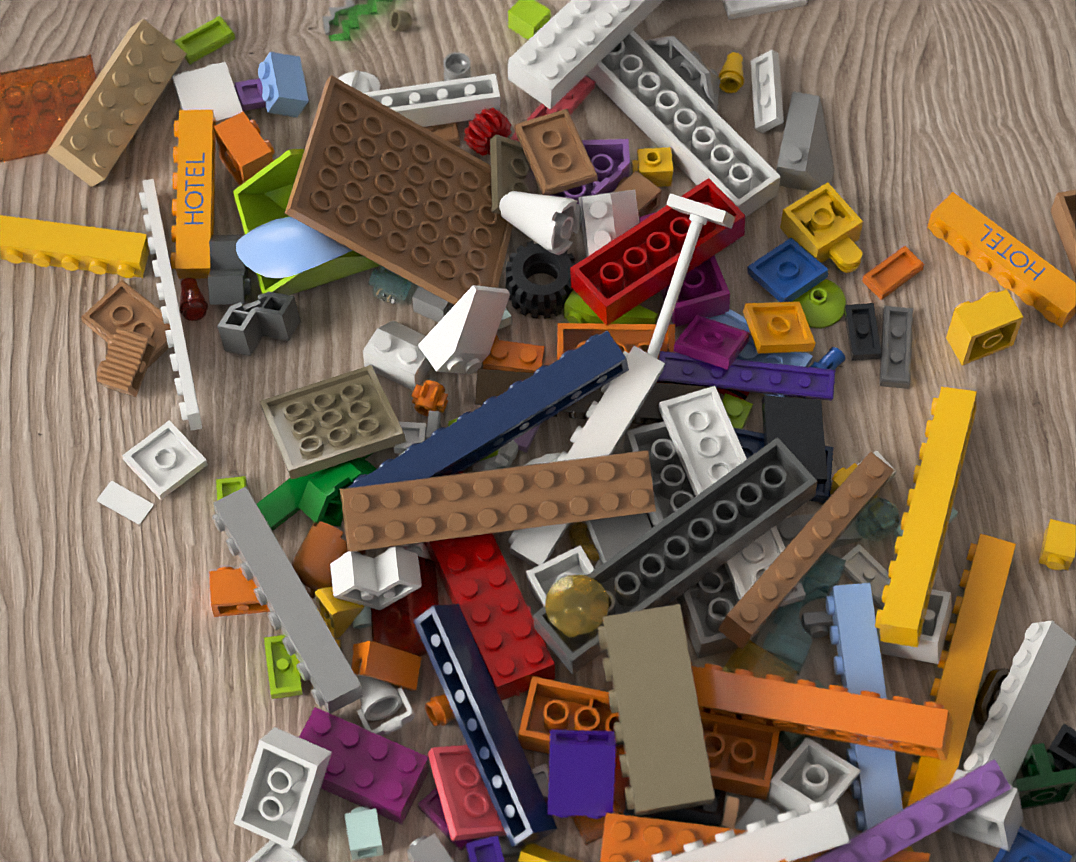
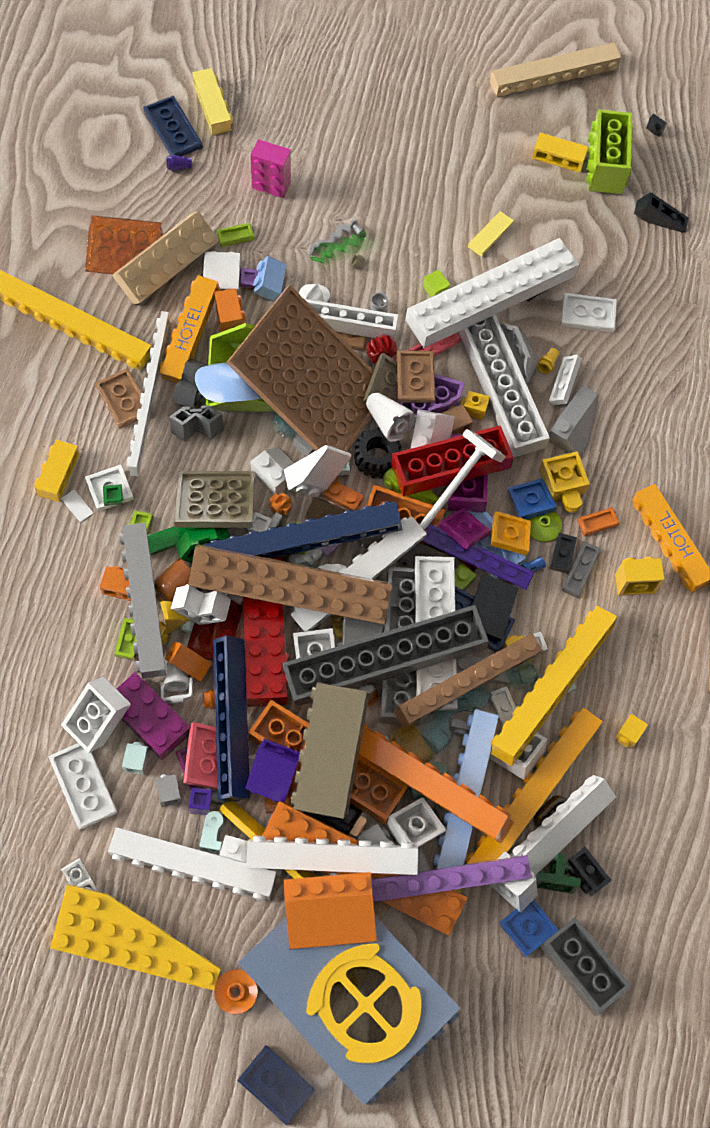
camera: 15 degrees right, 5 degrees up
(75, 461) = (57, 470): none -> yellow brick
(126, 361) = (108, 420): medium nougat brick -> none
(176, 467) = (113, 495): none -> green tile
(192, 302) = (163, 396): clear red cone -> none
(576, 604) = (310, 666): clear yellow dish -> none

